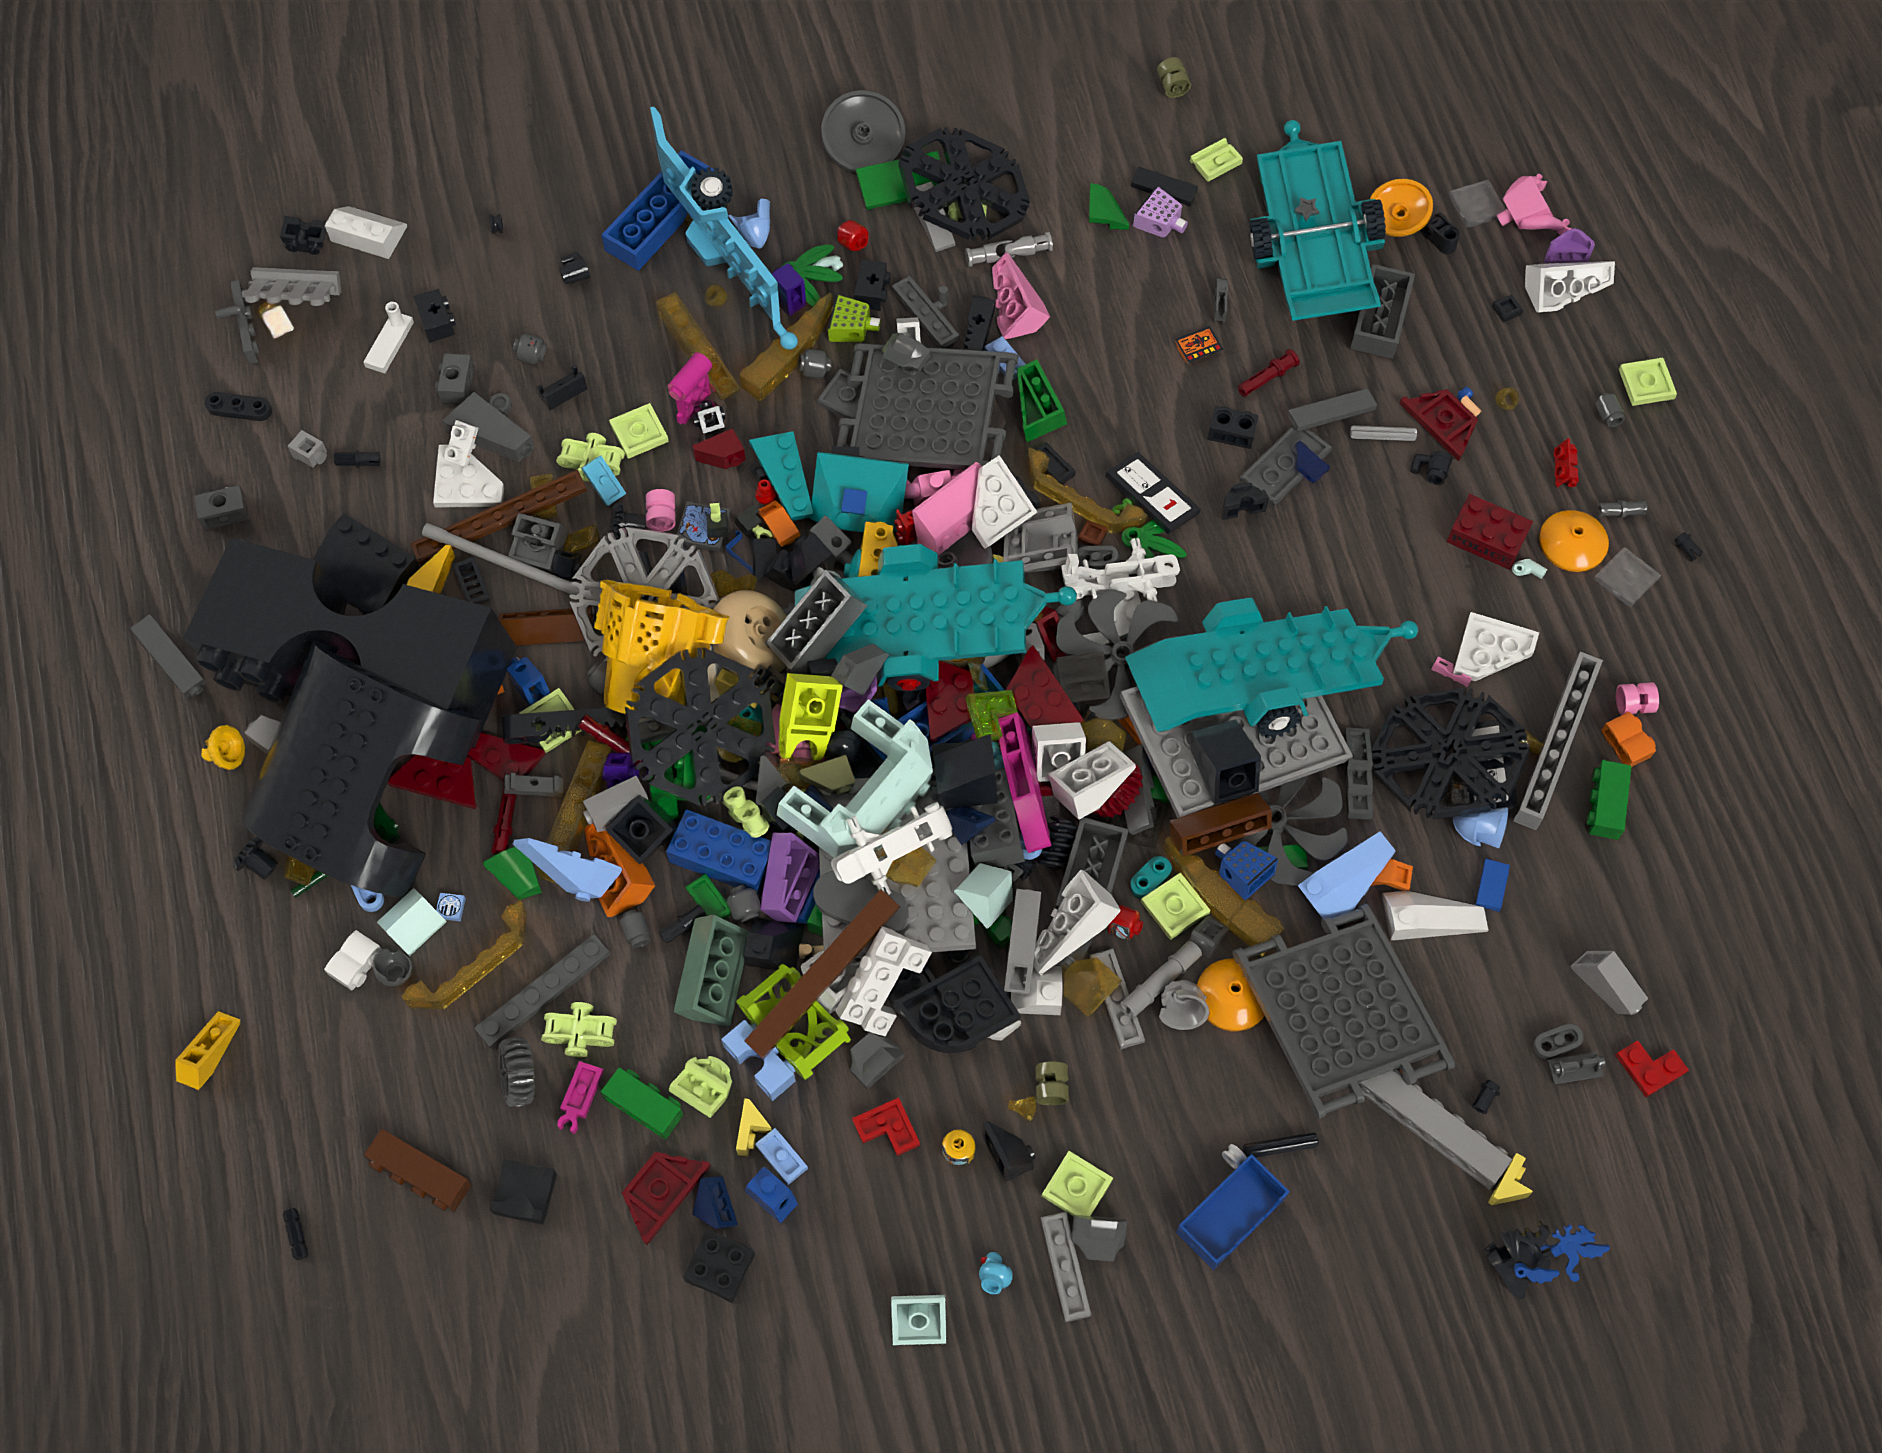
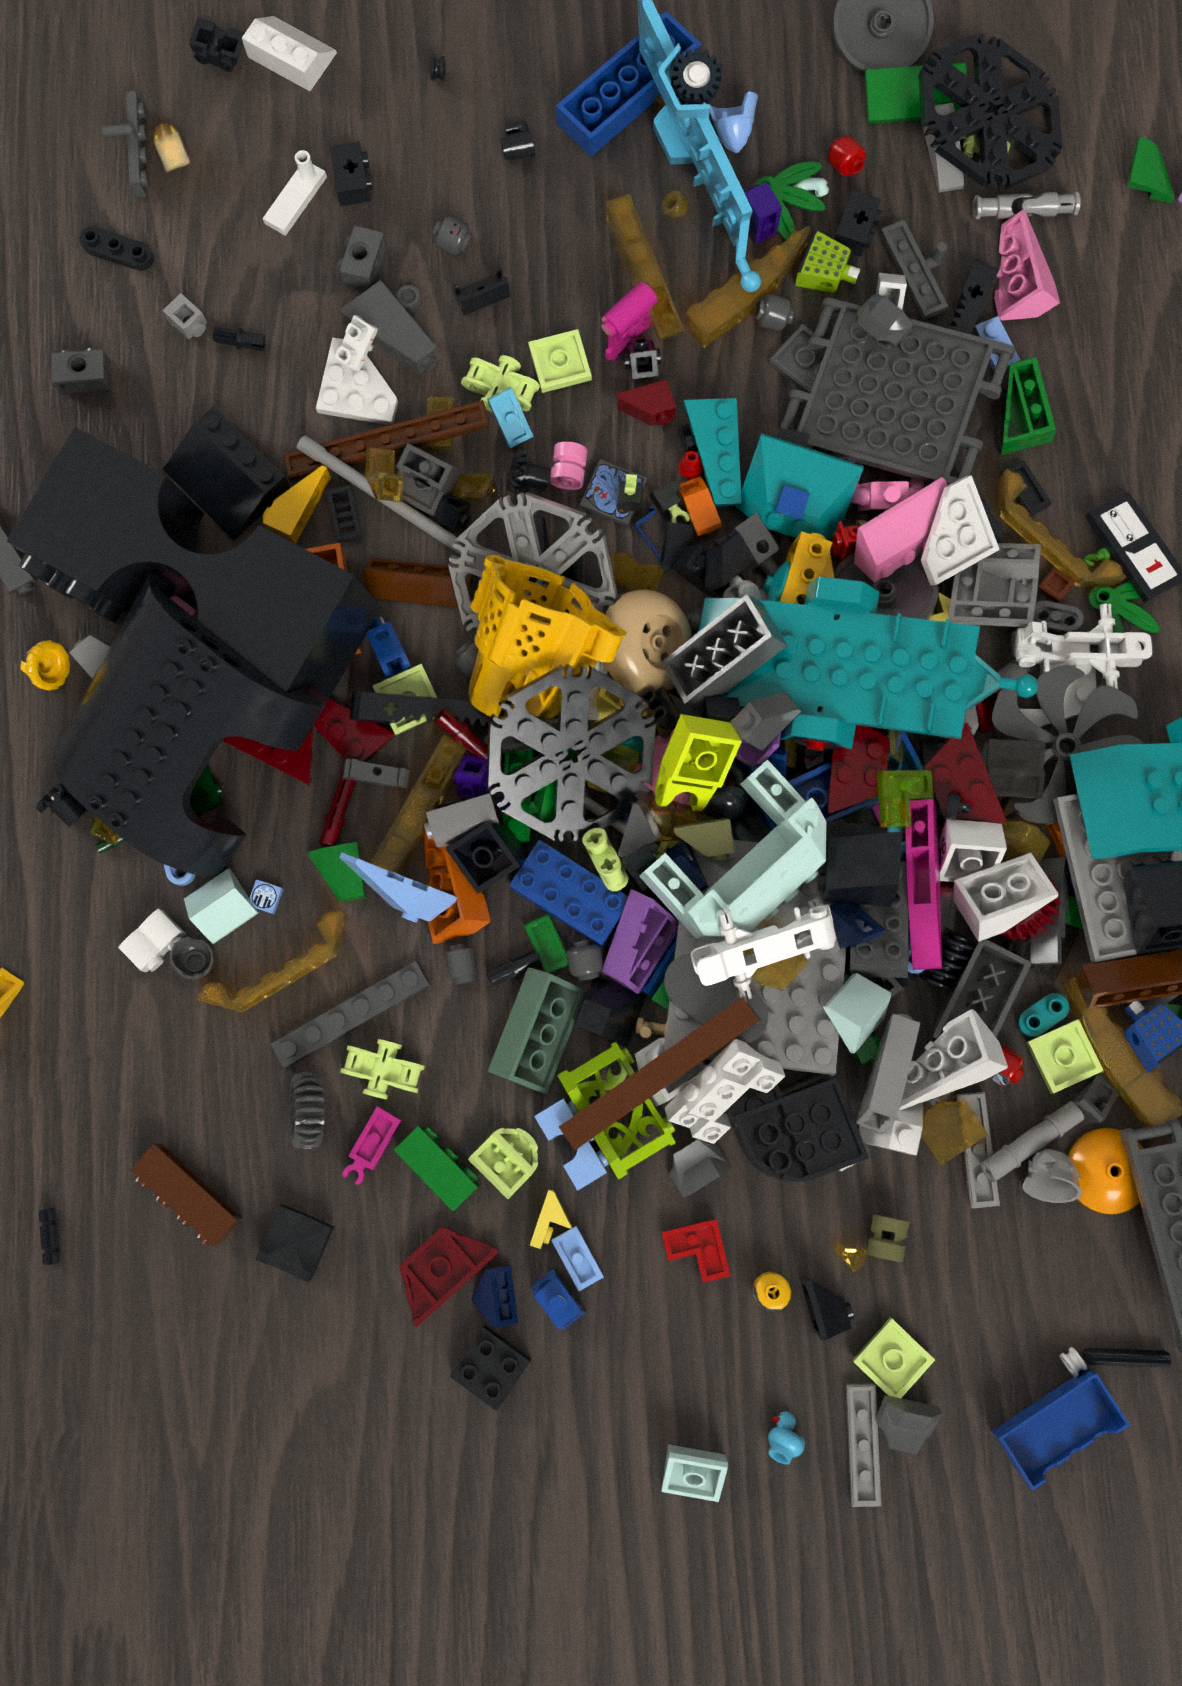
camera: 15 degrees right, 15 degrees up
(292, 285) = (195, 101): light grey fence -> none
(499, 542) = (381, 475): none -> clear yellow slope
(1034, 713) = (955, 806): none -> black tile

